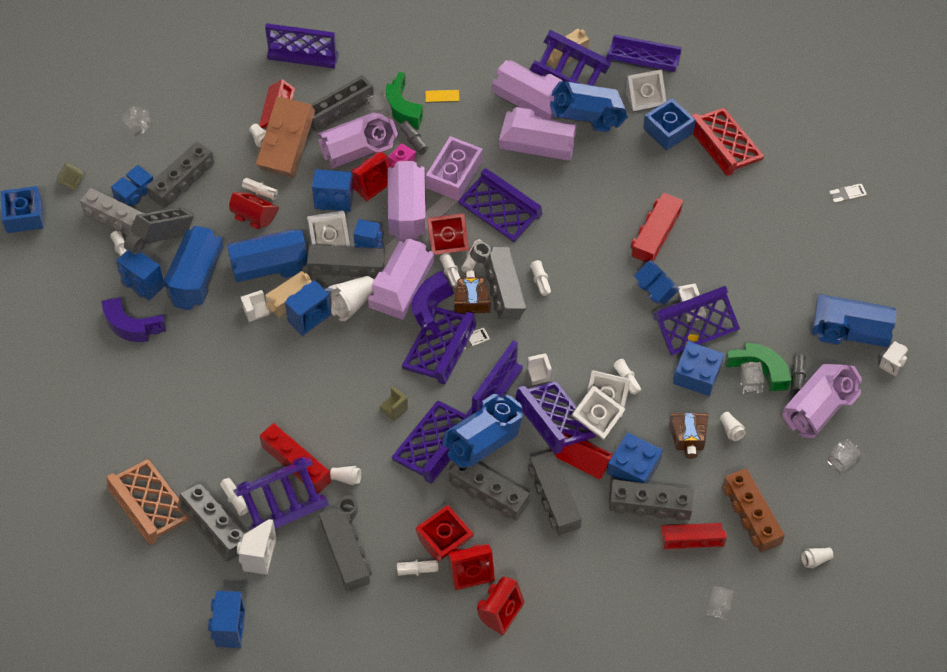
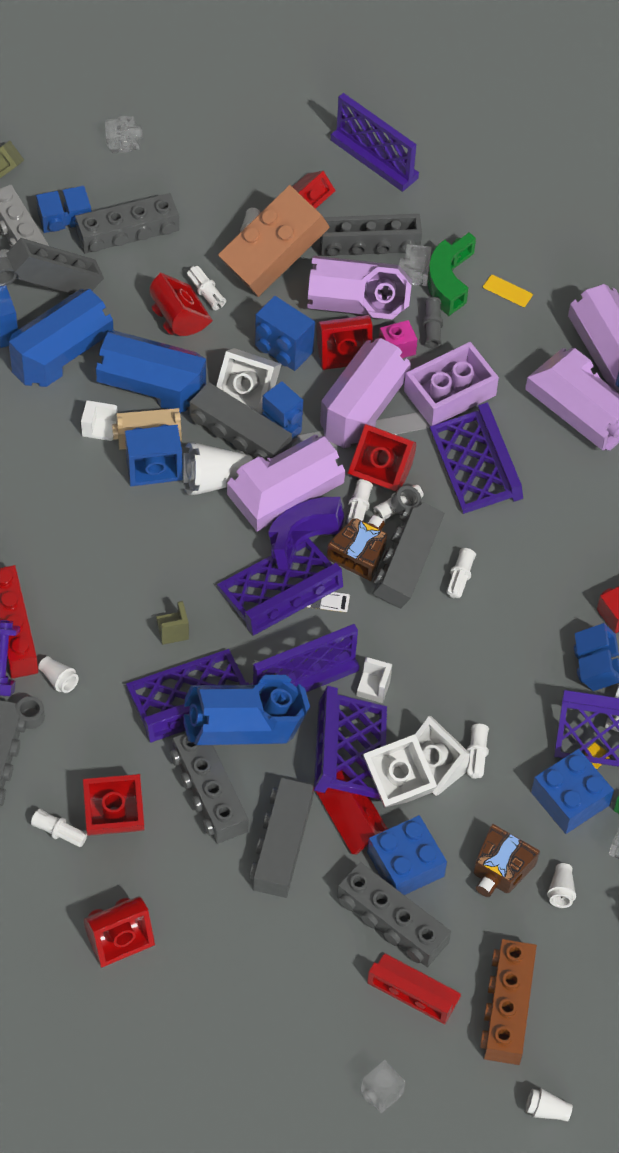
camera: 30 degrees right, 0 degrees up
(471, 566) = (118, 863): red brick -> none

